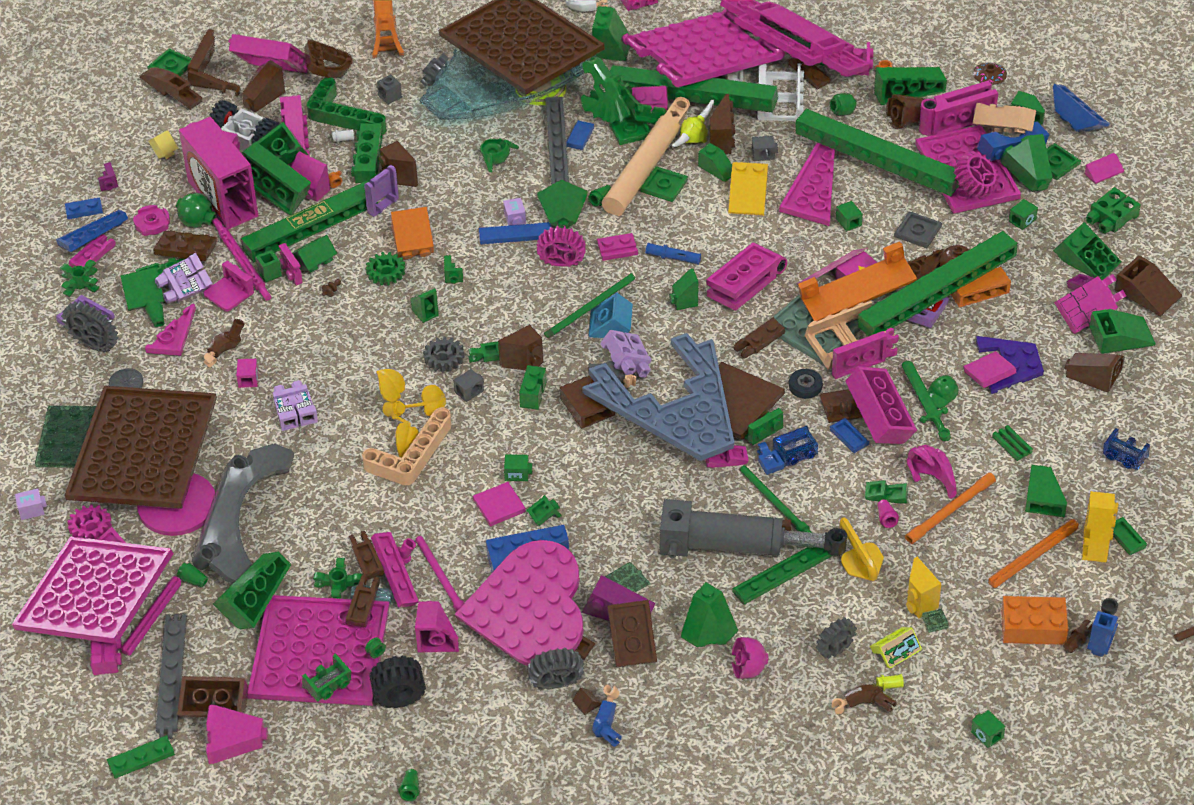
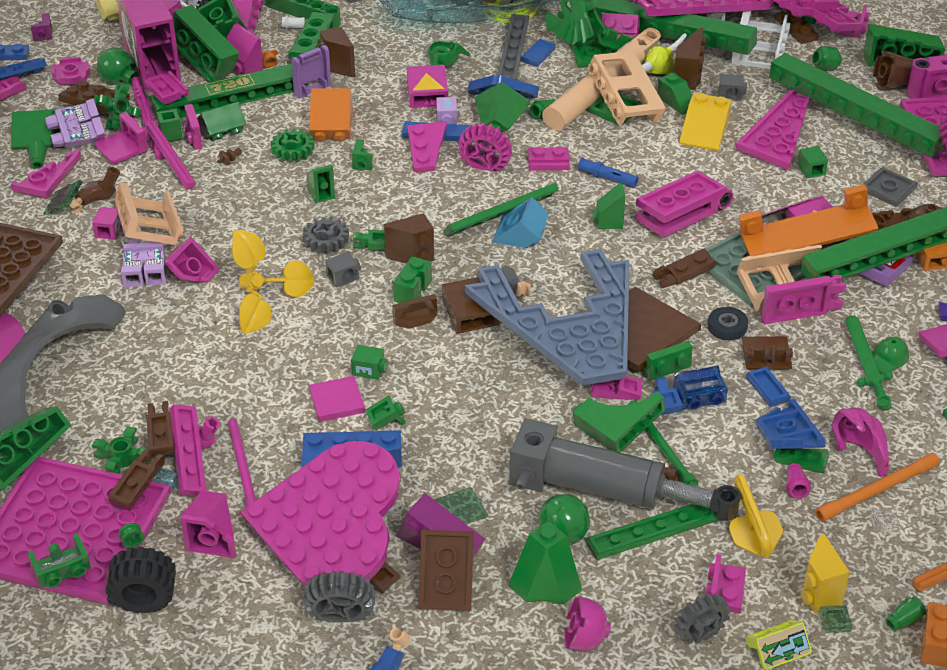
camera: 10 degrees right, 5 degrees down
(197, 353) = (62, 197): none -> clear green piece
(214, 254) = (110, 106): none -> green pin
(255, 228) = (166, 87): none -> dark pink plate
(276, 370) = (131, 221): none -> light nougat window
(278, 295) = (170, 155): none -> dark pink axle
(335, 399) = (191, 262): none -> dark pink slope
(407, 469) = (258, 334): light nougat beam -> none
(488, 187) = (426, 85): none -> dark pink brick
(505, 250) = (425, 144): none -> dark pink wing
(542, 415) = (415, 312): none -> reddish brown slope
(548, 180) = (523, 88): none -> blue beam
(586, 700) = (368, 643): reddish brown slope -> none
(627, 353) = (526, 261): lavender hips -> none
(679, 157) = (635, 79): none -> light nougat window
(715, 572) = (567, 514): none -> green piece
(734, 490) = (617, 425): none -> green arch
(848, 606) = (727, 582): none -> dark pink bracket
(873, 470) = (789, 428): none -> blue wing
(880, 405) = (811, 356): dark pink brick -> none
(988, 606) = (907, 613): none -> green cone

